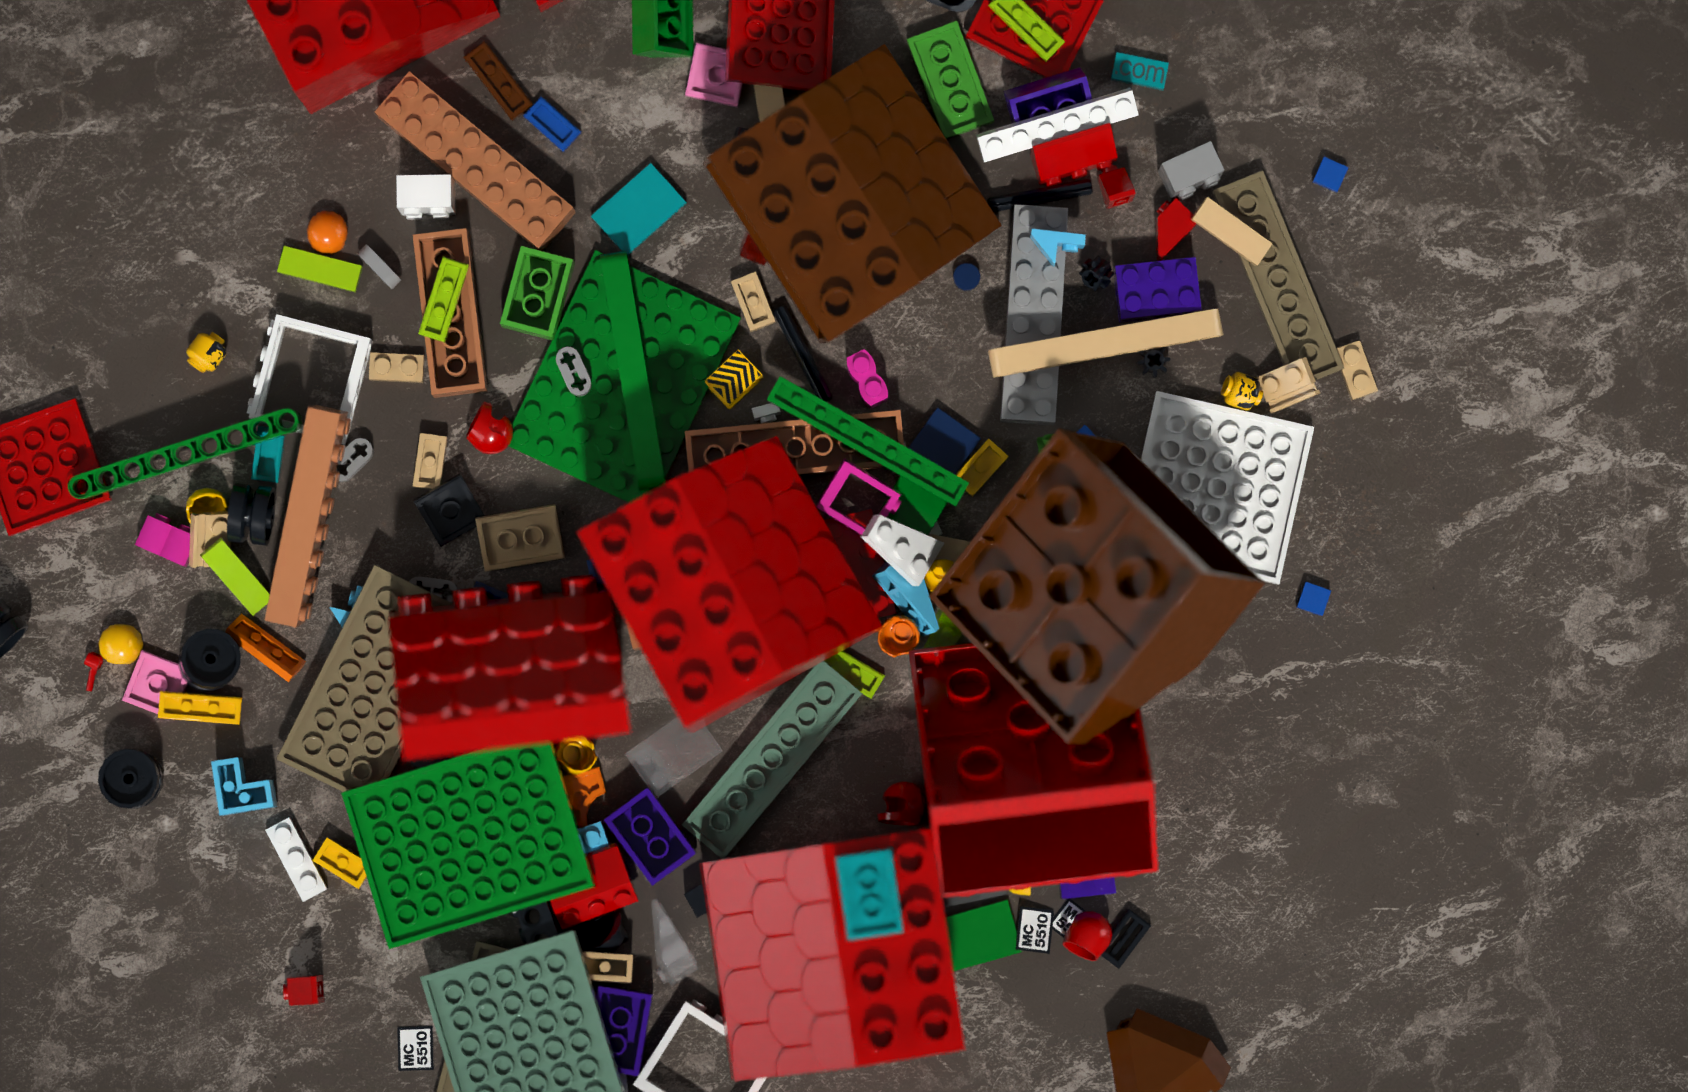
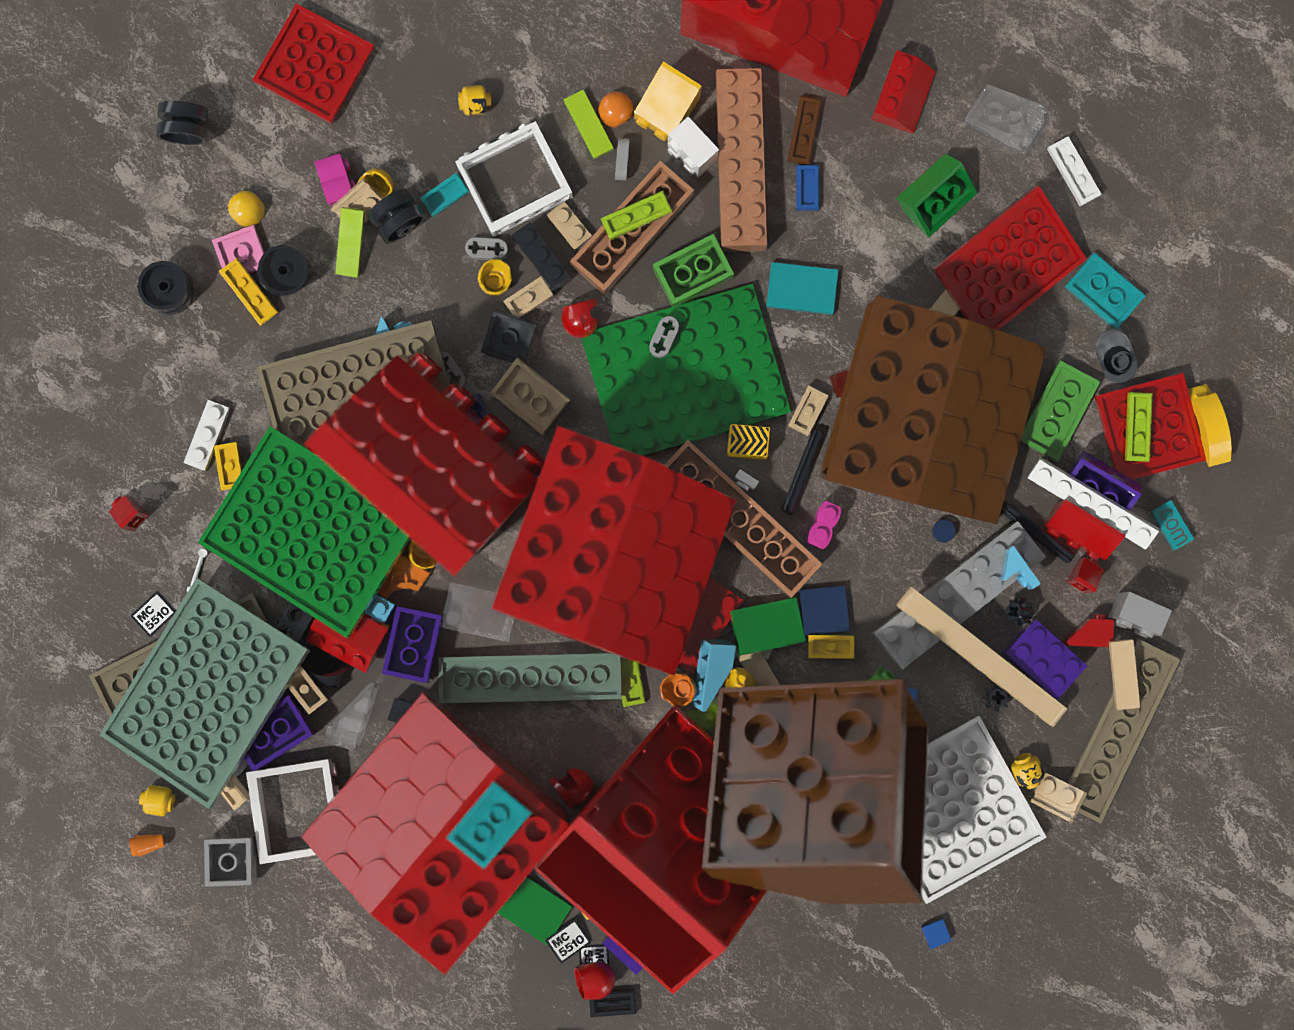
camera: 50 degrees right, 0 degrees up
(94, 661) = (221, 202): red hand -> none
(172, 457) = (388, 136): green beam -> none
(235, 794) = (213, 361): medium azure brick -> none
(265, 647) = (321, 299): orange plate -> none
(306, 516) = (425, 250): nougat brick -> none
(364, 181) = (667, 101): none -> yellow slope
(384, 475) = (494, 277): none -> yellow hair
(400, 956) = (202, 553): none -> white hinge
(404, 417) = (541, 257): none -> black arch
(632, 370) = (697, 373): green beam -> none
(708, 77) = (923, 258): bright pink tile -> none
(837, 482) = (736, 565): dark pink window -> none
(867, 441) = (784, 561): green plate -> none
(902, 547) = (736, 643): white wing -> none
(1330, 174) = (1215, 704): blue tile -> none
(1356, 371) = (1104, 834): tan plate -> none

